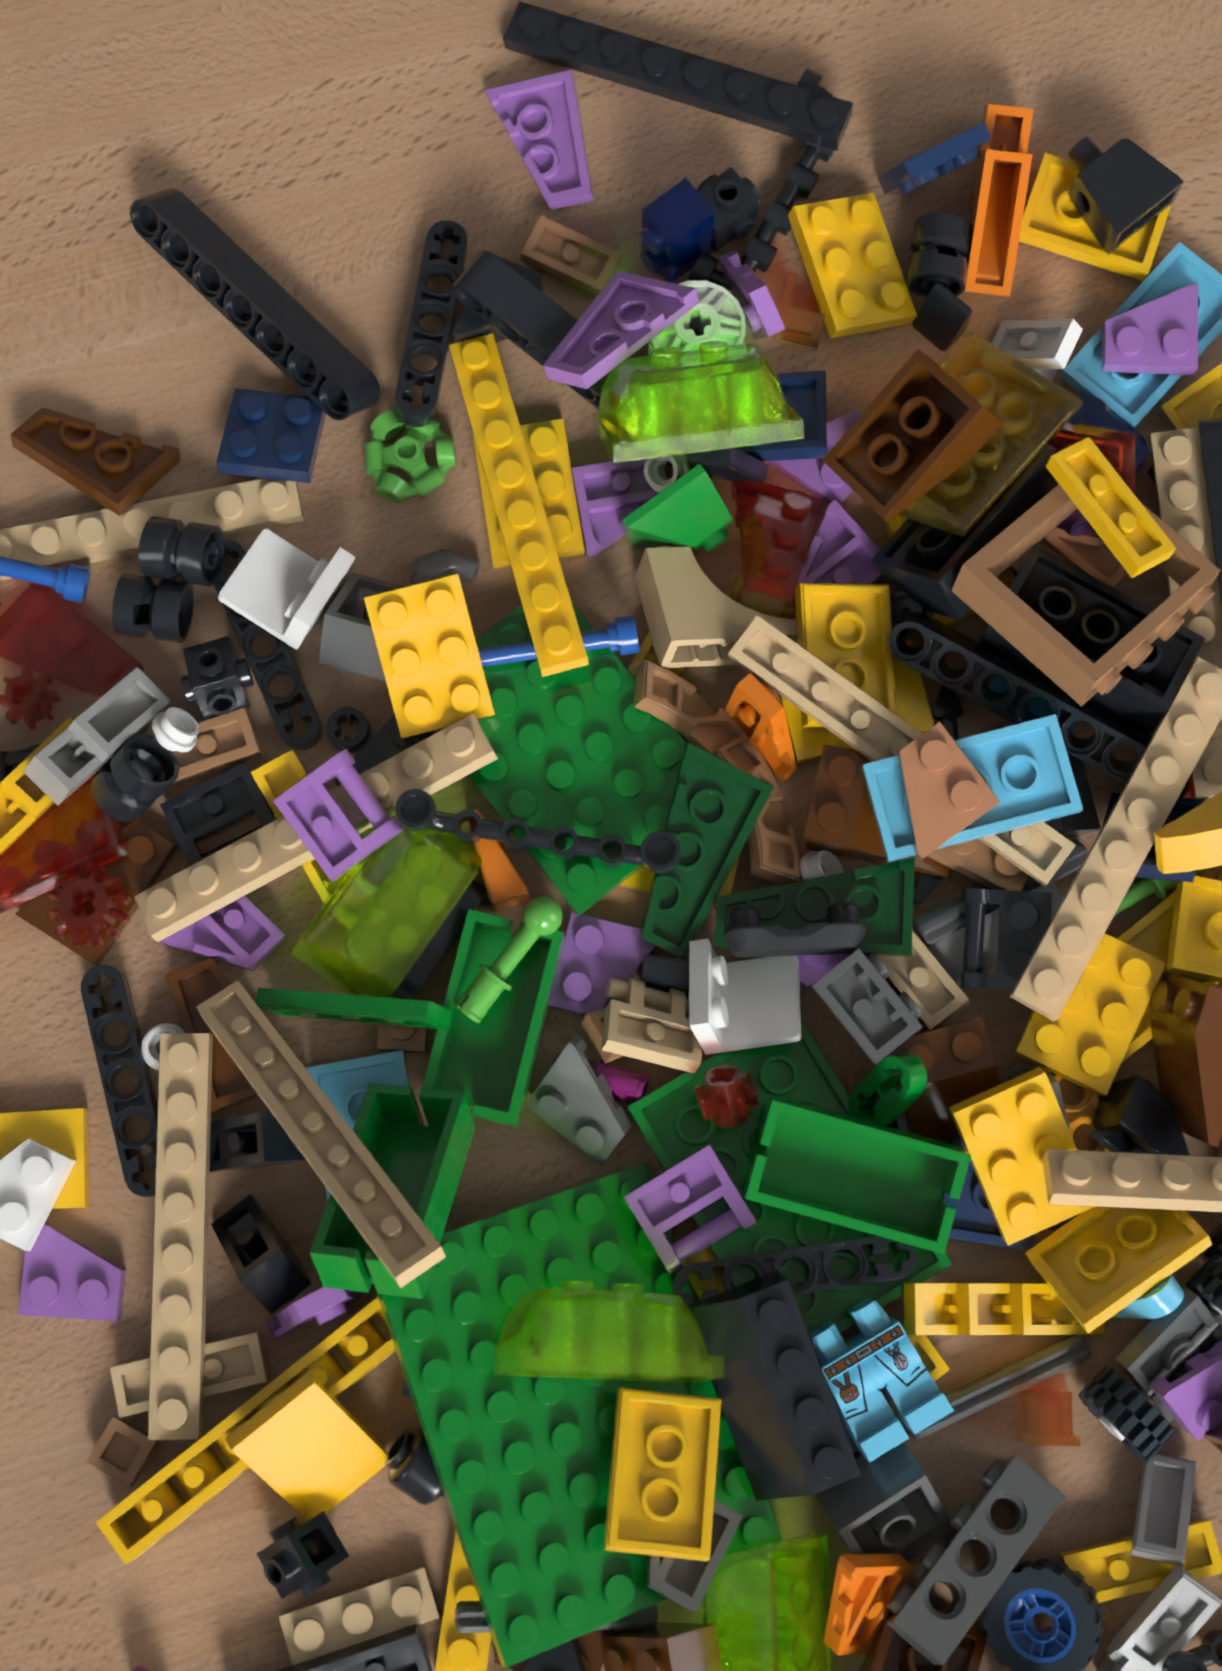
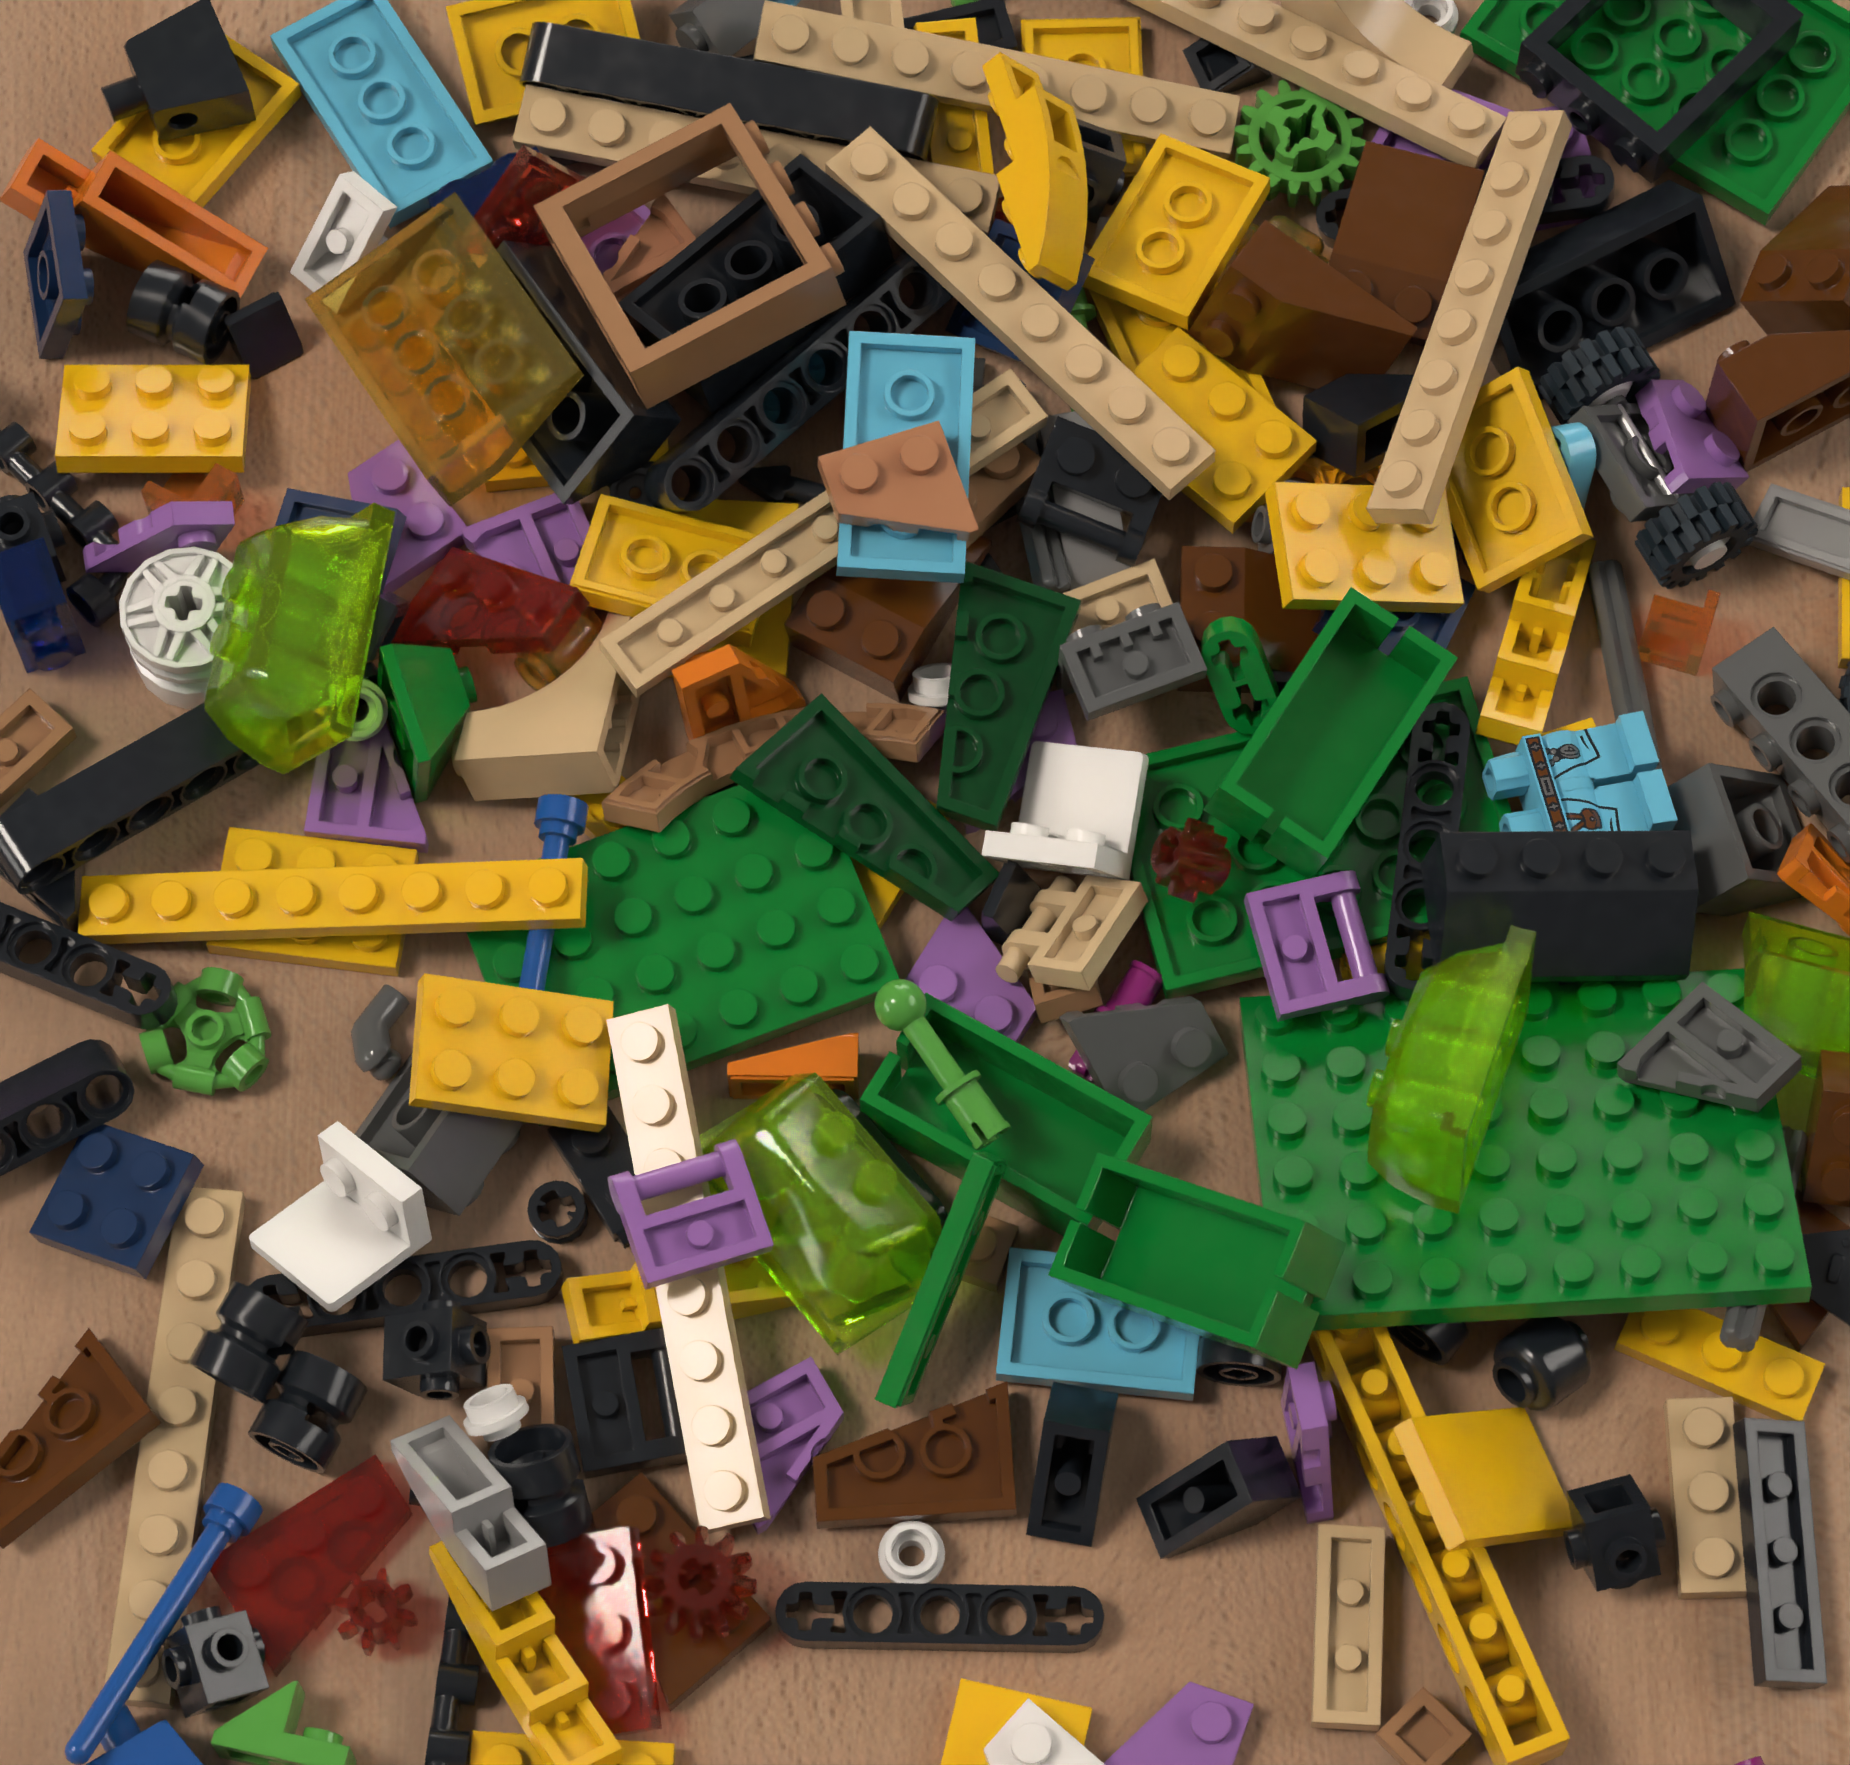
camera: 75 degrees left, 10 degrees down
(180, 1237) = (1167, 1581): tan plate -> none
(322, 1135) = (1095, 1323): tan plate -> none
(617, 325) = (156, 694): medium lavender wing -> none
(657, 852) = (720, 1105): black bar -> none
(662, 1475) = (1629, 1053): yellow tile -> none
(838, 936) = (1007, 772): black piece -> none
(911, 437) = (436, 394): reddish brown slope -> none
(1110, 507) = (611, 193): yellow plate -> none
(1154, 336) = (387, 99): medium lavender wing -> none

